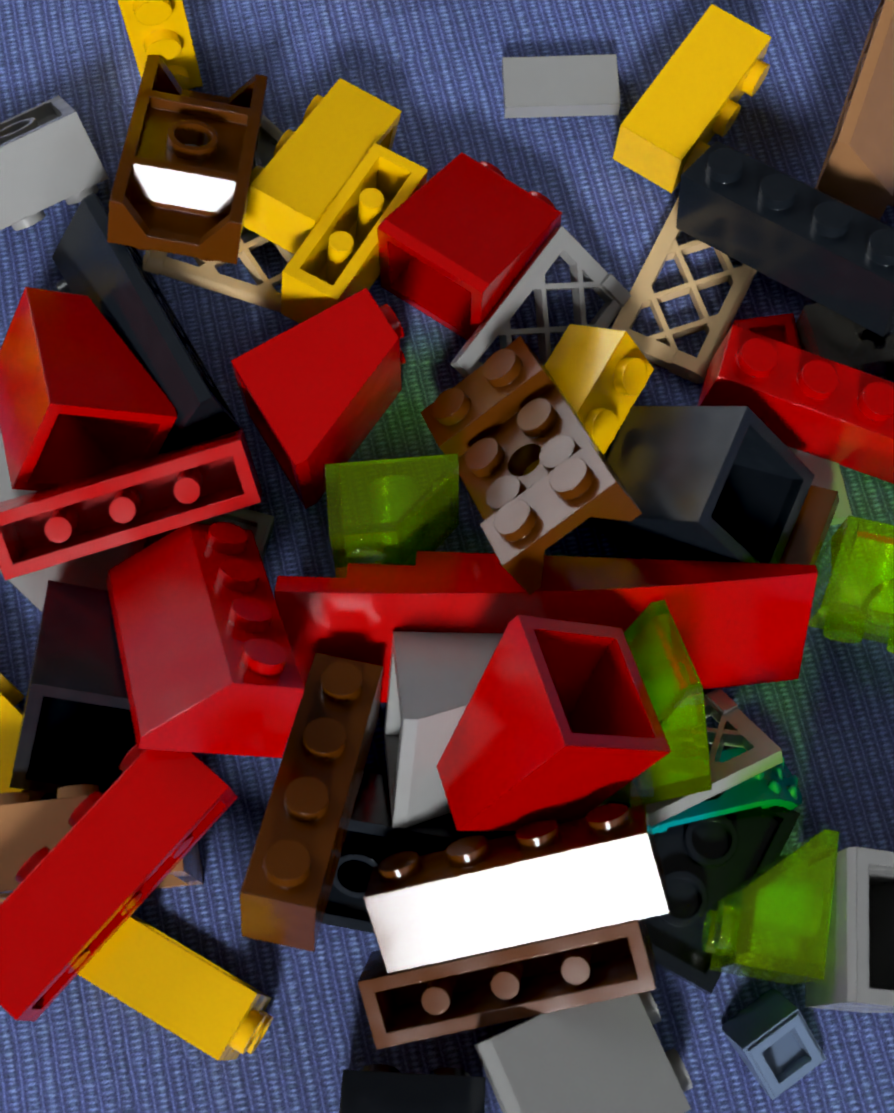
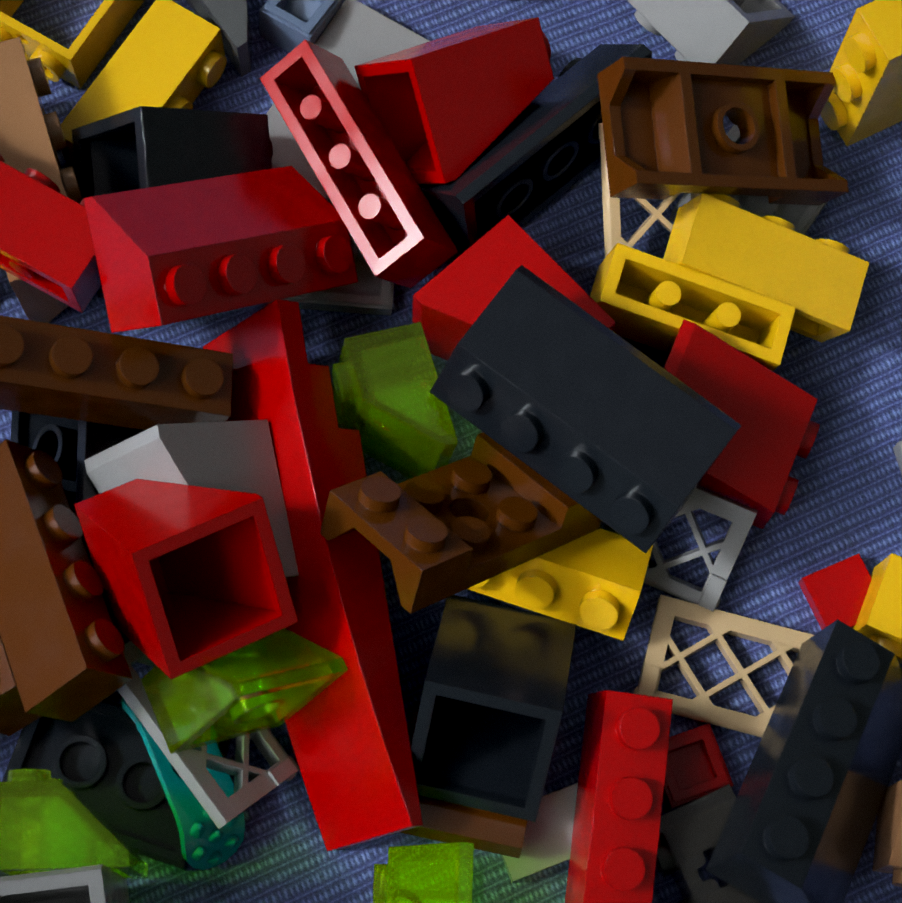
camera: 75 degrees right, 0 degrees up
(456, 325) = (584, 408): none -> black slope
(632, 192) = (837, 591): none -> red tile

